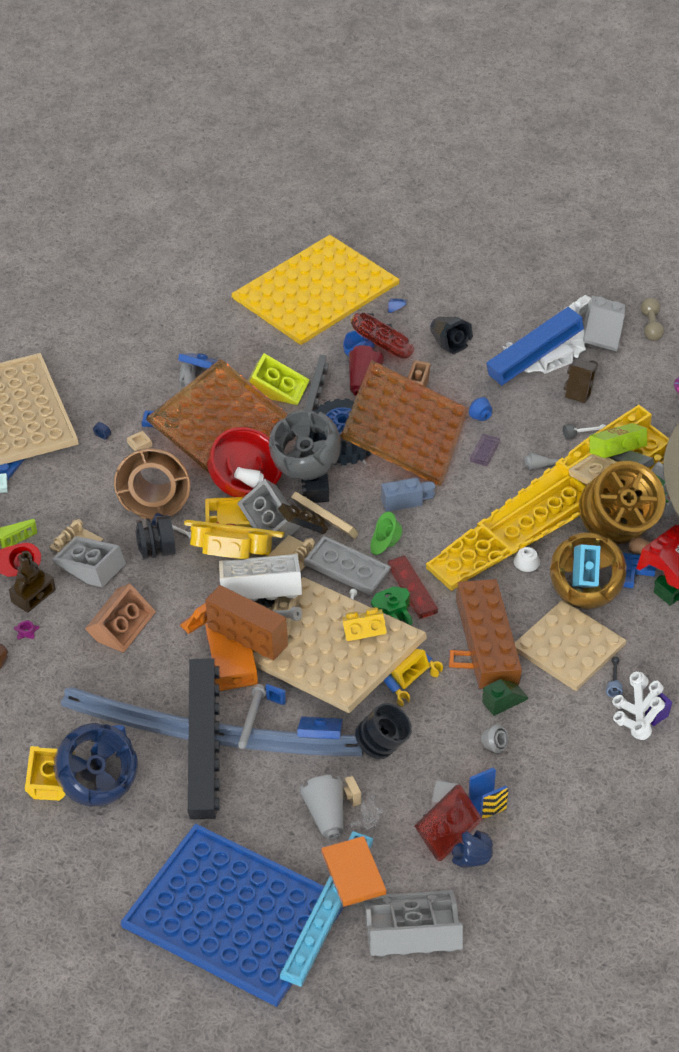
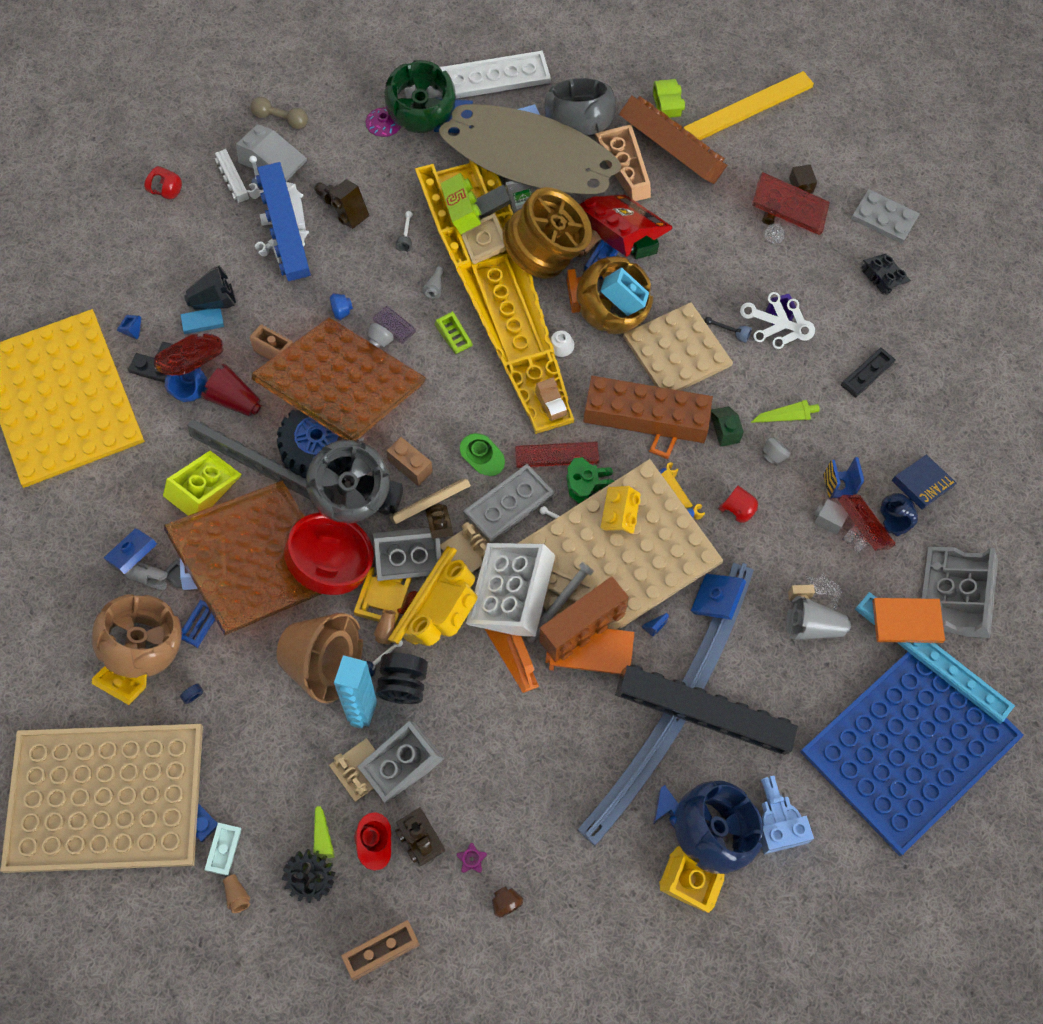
camera: 75 degrees left, 20 degrees up
(97, 391) = (120, 687): none -> yellow bracket
(119, 490) = (356, 691): none -> medium azure brick
(120, 618) = (499, 751): nougat slope -> none
(121, 821) = (781, 821): none -> light blue brick
(127, 394) = (132, 658): none -> medium nougat wheel
(139, 441) = (229, 657): tan plate -> none
(201, 515) = (385, 627): none -> medium nougat cone
(248, 476) = (352, 554): white cone -> none
(258, 693) = (648, 640): light grey bar -> none
(354, 492) = (409, 461): none -> medium nougat brick
(383, 731) = (751, 539): black wheel -> none
(405, 493) = (432, 416): sand blue brick -> none
(423, 340) = (202, 320): none -> dark azure tile
(423, 721) = (741, 504): none -> red helmet
(458, 559) = (550, 399): none -> medium nougat leg
(466, 440) = (379, 335): none -> light grey cone
(503, 476) = (451, 317): none -> lime slope
(518, 862) = (924, 482): none -> dark blue tile
(537, 279) = (171, 183): none -> red helmet
(548, 748) = (792, 412): none -> lime bar
(628, 800) = (868, 372): none -> black tile

